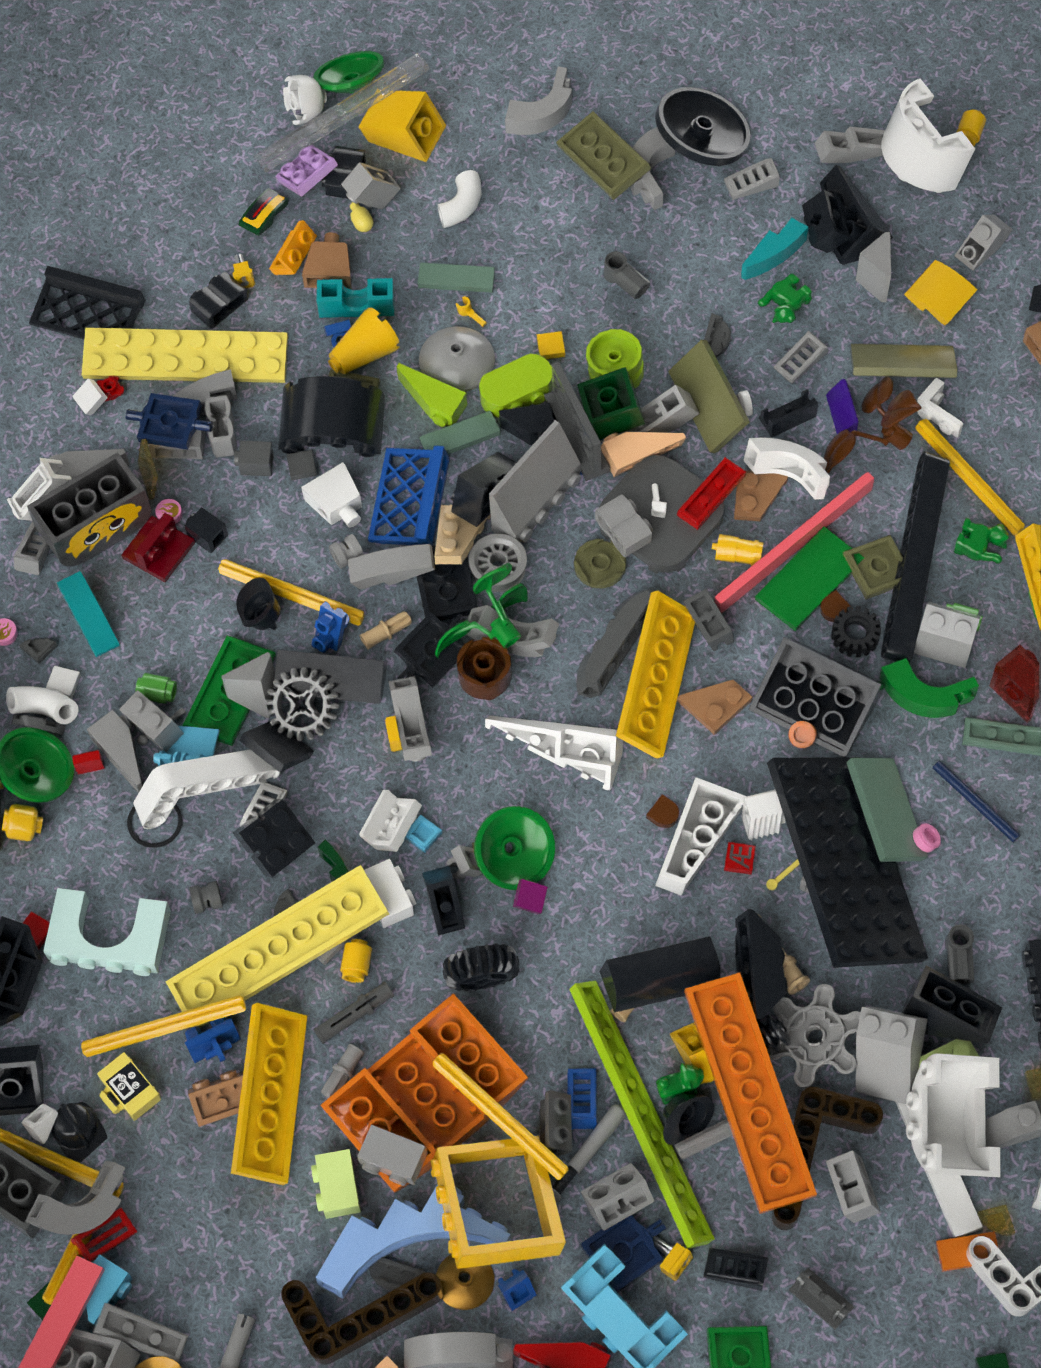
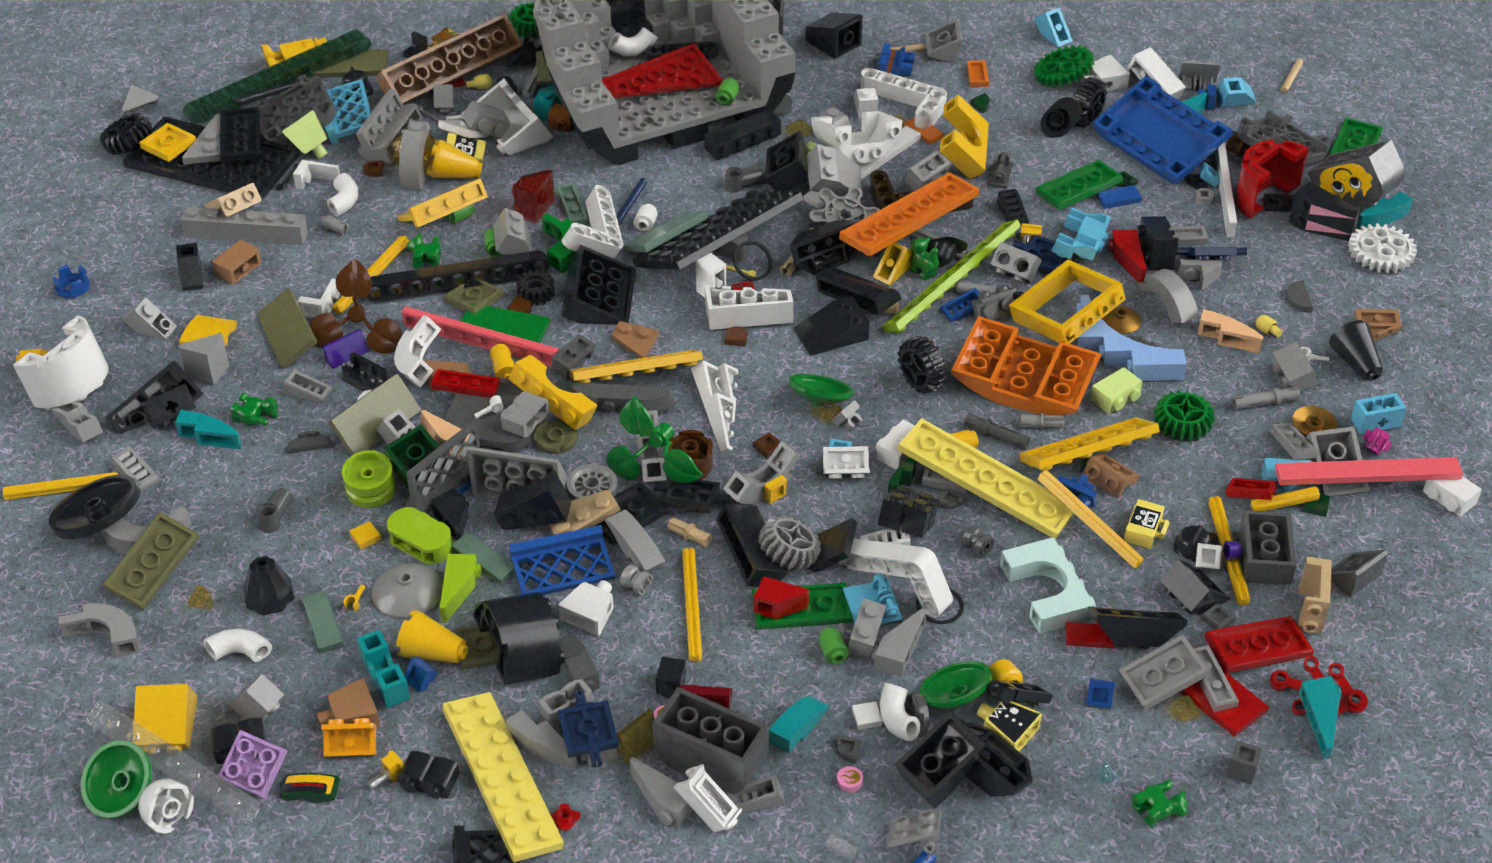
camera: 120 degrees left, 20 degrees down
(27, 1144) = (1232, 550): none -> dark purple hinge
(84, 1214) = (1252, 494): light grey arch -> none
(88, 762) = (925, 659): red tile -> none
(89, 397) = (583, 825): white tile -> none
(235, 652) = (779, 598): none -> red slope
(248, 1246) = (1171, 419): none -> green gear
(250, 684) = (790, 572): light grey slope -> none
(258, 605) = (721, 608): black piece -> none
(329, 628) = (712, 553): blue hips -> none
(359, 1319) = (1198, 347): dark brown beam -> none
(361, 218) = (288, 710): light yellow cylinder -> none
(392, 1156) = (1083, 353): light grey brick -> none
(443, 900) = (880, 415): black slope -> none
(470, 764) = (766, 444): none -> reddish brown tile
(500, 1116) = (1014, 317): yellow axle -> none
(518, 241) = (267, 587): none -> black cone
(530, 896) = (847, 375): magenta tile -> none
(543, 191) = (201, 598): none -> clear yellow tile
(617, 919) = (834, 327): none -> black slope
(675, 548) = (570, 407): none -> yellow arch
(760, 886) = (740, 271): none -> black piece
(764, 116) = (50, 487): none -> yellow axle
(802, 734) = (632, 289): orange tile -> none
(856, 1266) = (969, 147): none -> yellow arch
(926, 738) = (604, 232): none -> white beam
(926, 837) = (671, 213): bright pink tile -> none
(931, 803) = (645, 217): none -> white brick

